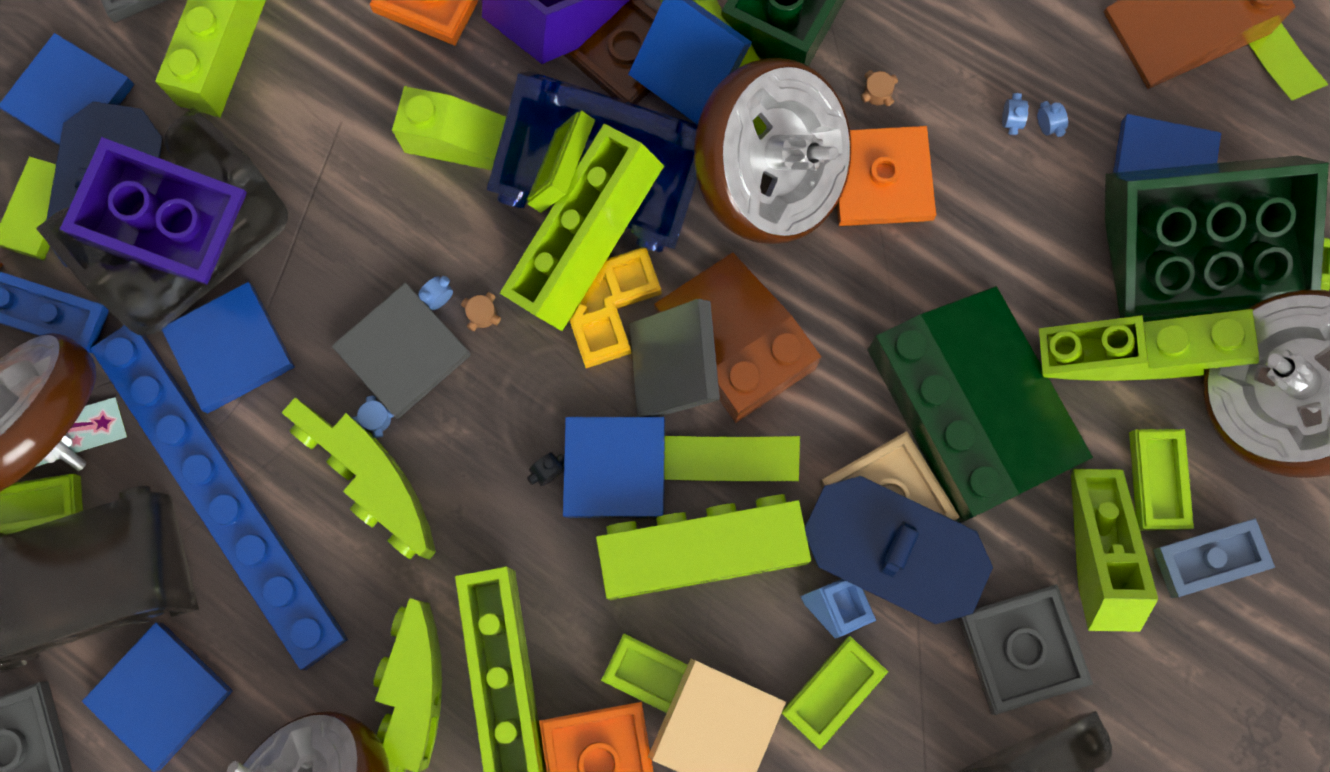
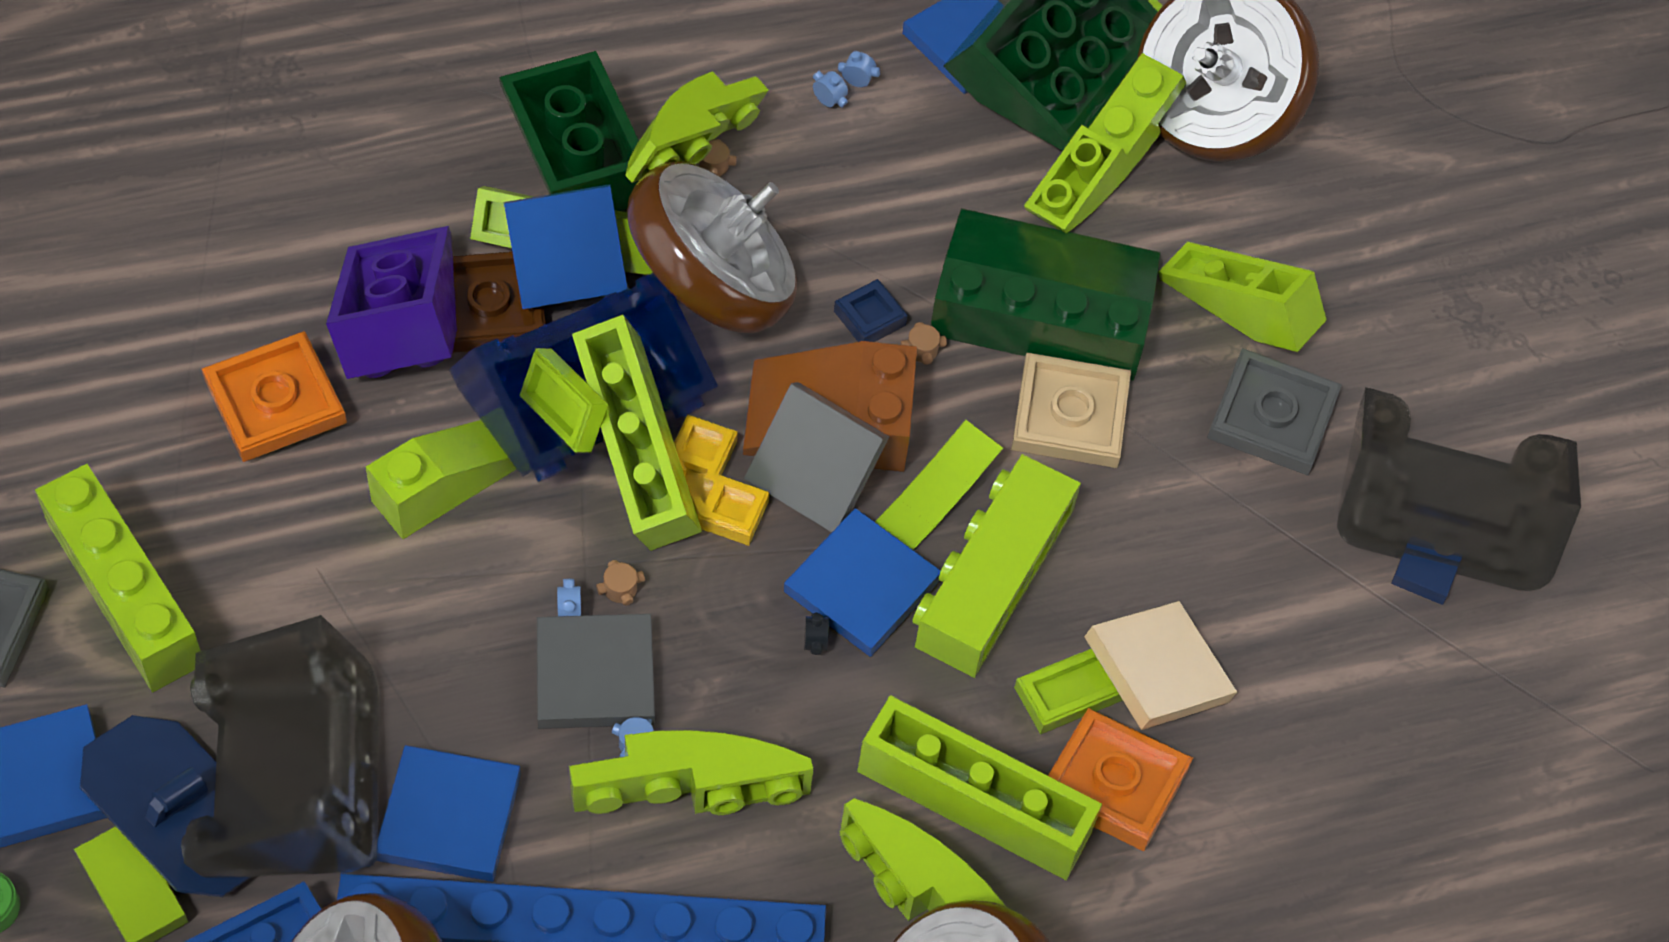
camera: 60 degrees left, 20 degrees down
(153, 212) = (290, 735): dark purple slope -> none
(834, 692) = (1199, 565): lime tile -> none
(839, 607) = (1129, 508): medium blue slope -> none
(845, 296) = (870, 312): none -> dark blue tile
(851, 352) = (926, 340): none -> medium nougat piece
(872, 46) = (693, 119): none -> lime slope
(888, 178) = (808, 208): orange plate -> none
(898, 550) = (1121, 427): dark blue shield -> none
(1161, 479) = (1215, 221): lime tile -> none
(1213, 558) = (1310, 230): sand blue plate -> none

